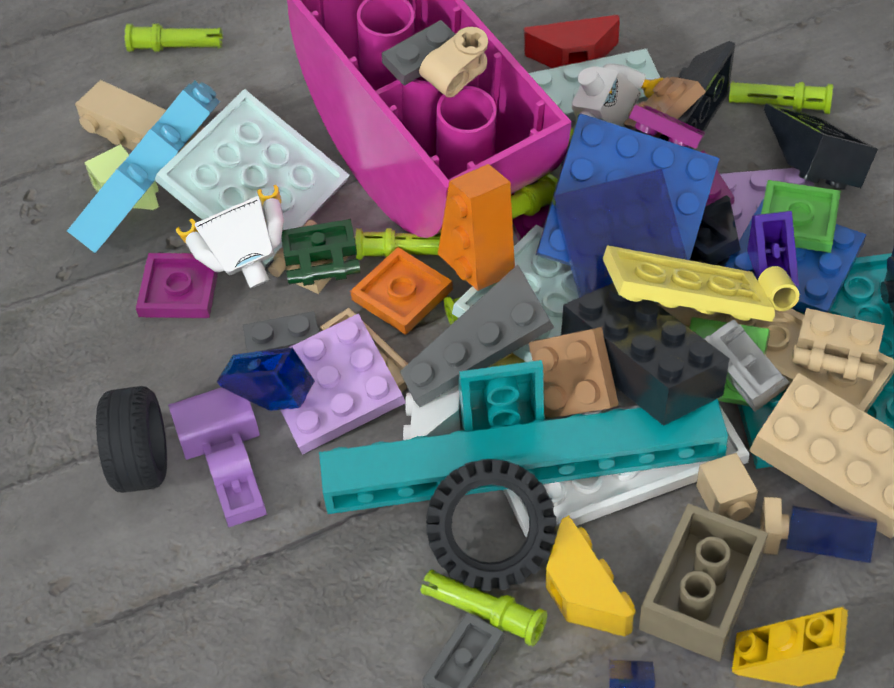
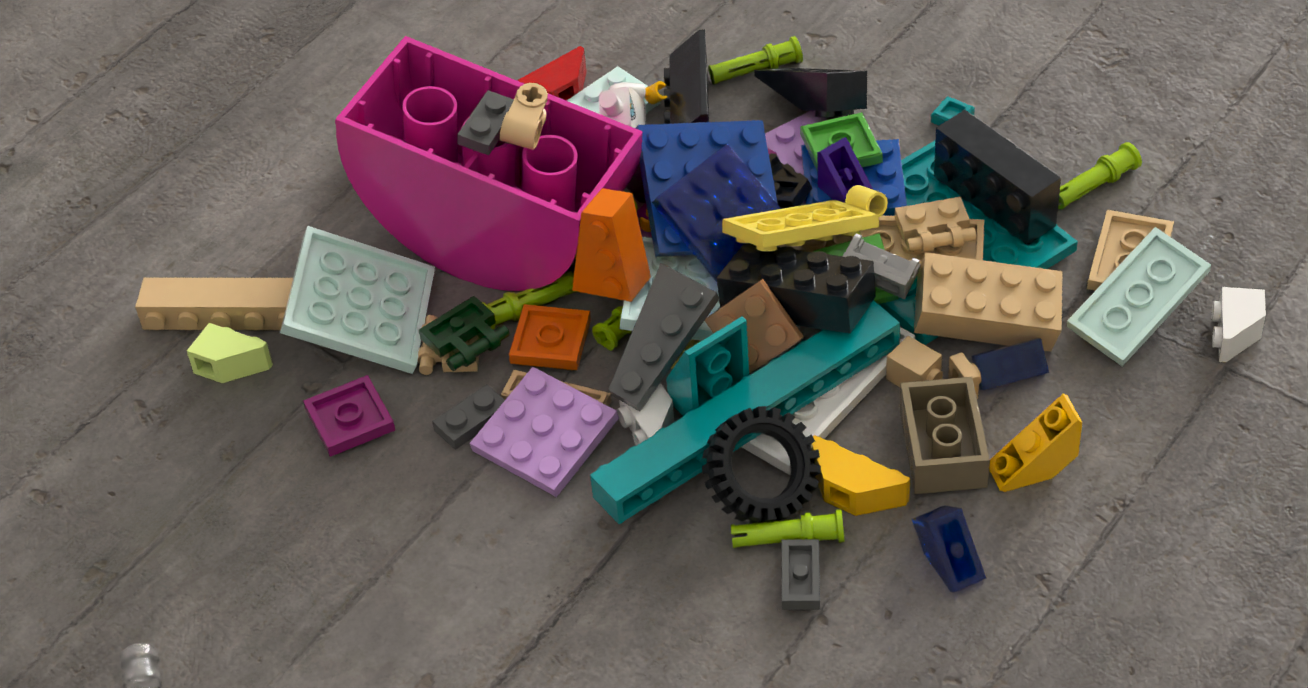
camera: 30 degrees left, 5 degrees down
(131, 439) = (419, 539): black tyre -> none
(141, 166) = (261, 312): medium azure arch -> none
(159, 37) = (161, 223): lime pin -> none
(216, 426) = (475, 504): medium lavender plate -> none
(239, 237) = (385, 351): white torso -> none
(268, 378) = (501, 442): clear blue slope -> none
(654, 121) = (695, 111): magenta plate -> none
(671, 97) = (680, 98): medium nougat plate -> none

